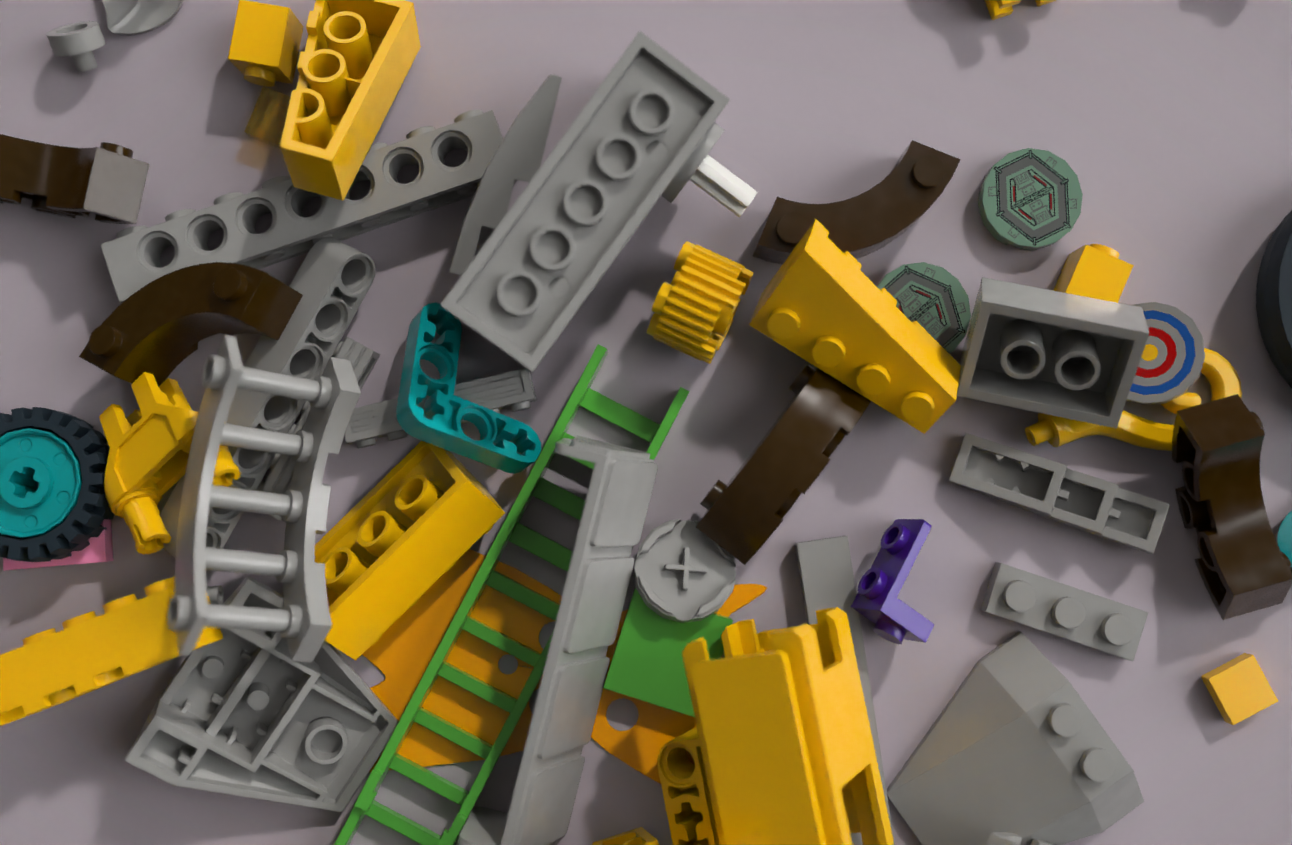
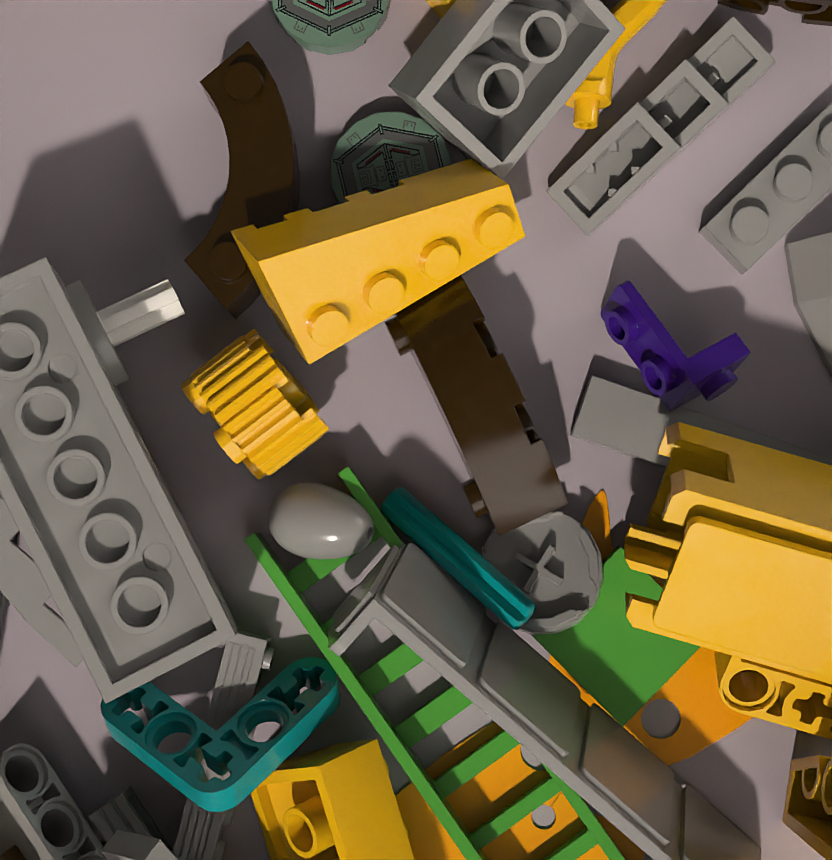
camera: 65 degrees left, 0 degrees up
(638, 391) = (319, 522): none -> light grey animal
(664, 505) = (458, 558): none -> teal axle

